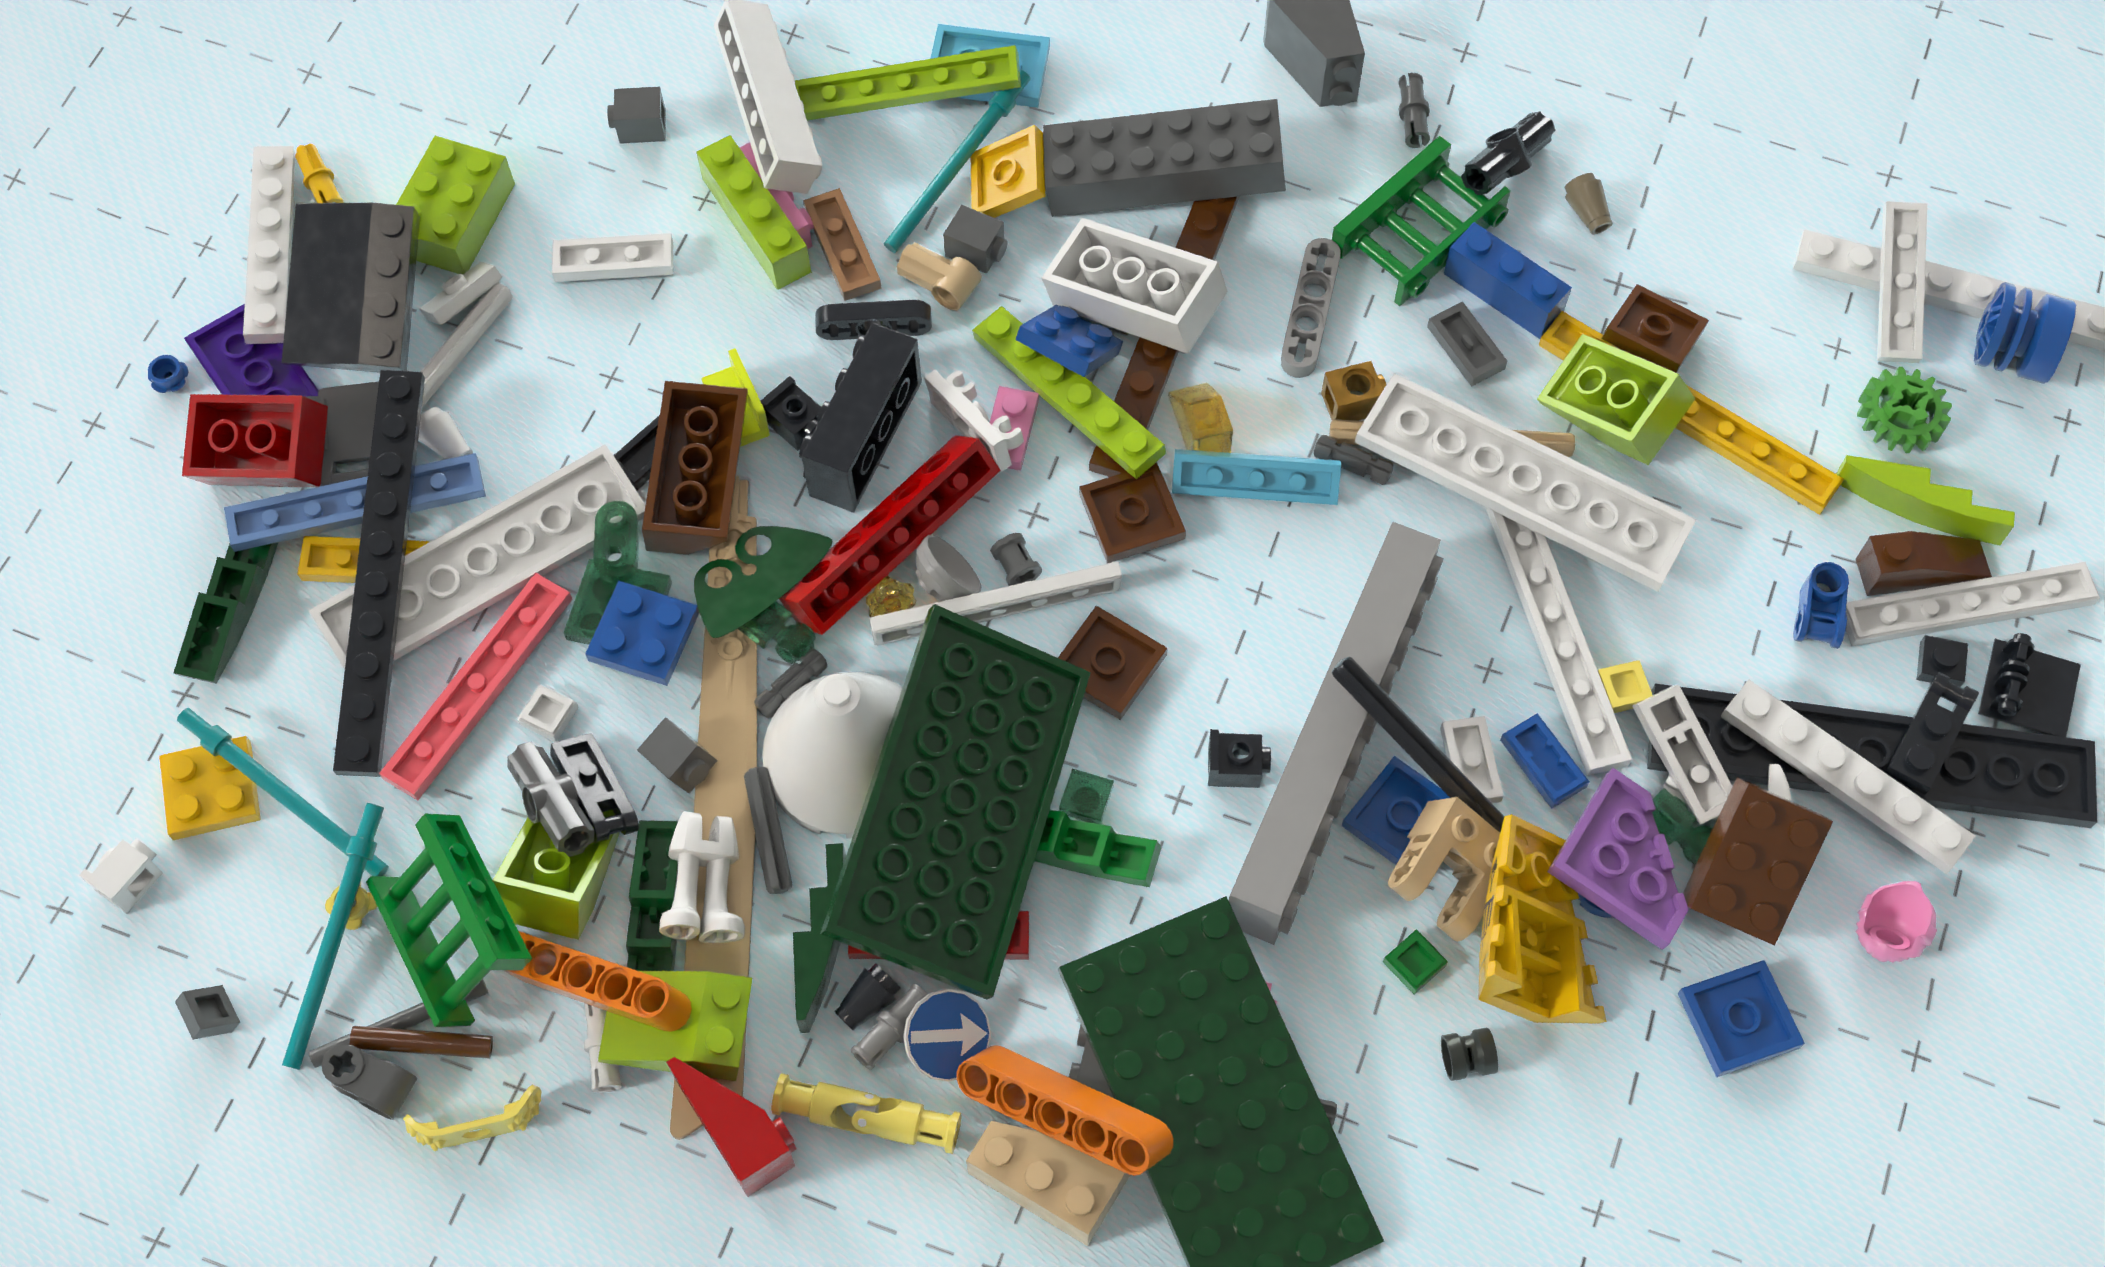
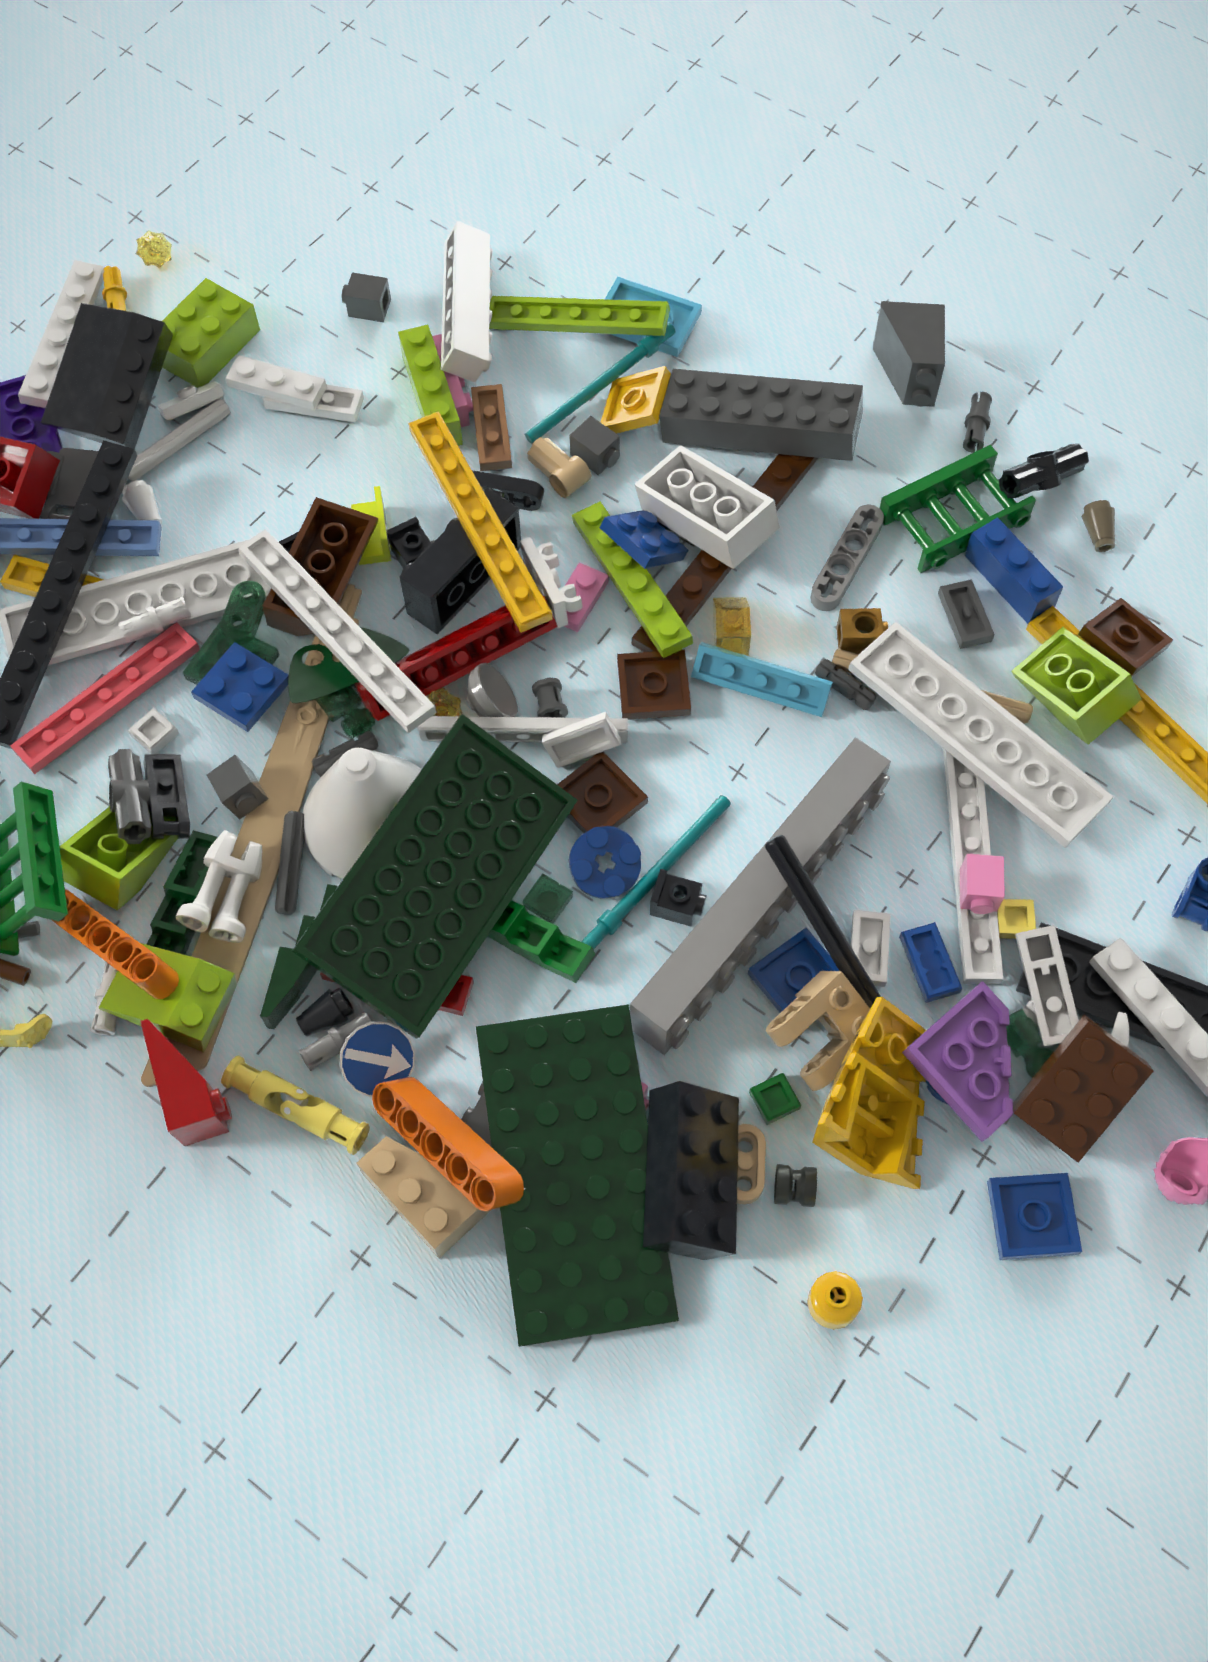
camera: 15 degrees right, 0 degrees up
(350, 110) = (153, 249): none -> clear yellow piece
(510, 576) = (155, 619): none -> white pin
(563, 247) = (276, 382): none -> white plate
(745, 538) = (337, 631): none -> white plate
(878, 366) = (480, 522): none -> yellow tile
(1070, 599) = (581, 740): none -> white tile
(1120, 751) = (585, 869): none -> blue plate
(1167, 803) = (610, 920): none -> teal bar
(1352, 1068) = (691, 1172): none -> black brick
(1405, 1046) = (751, 1164): none -> tan plate
(1545, 1183) = (827, 1311): none -> yellow head
(1579, 655) = (982, 883): none -> bright pink brick

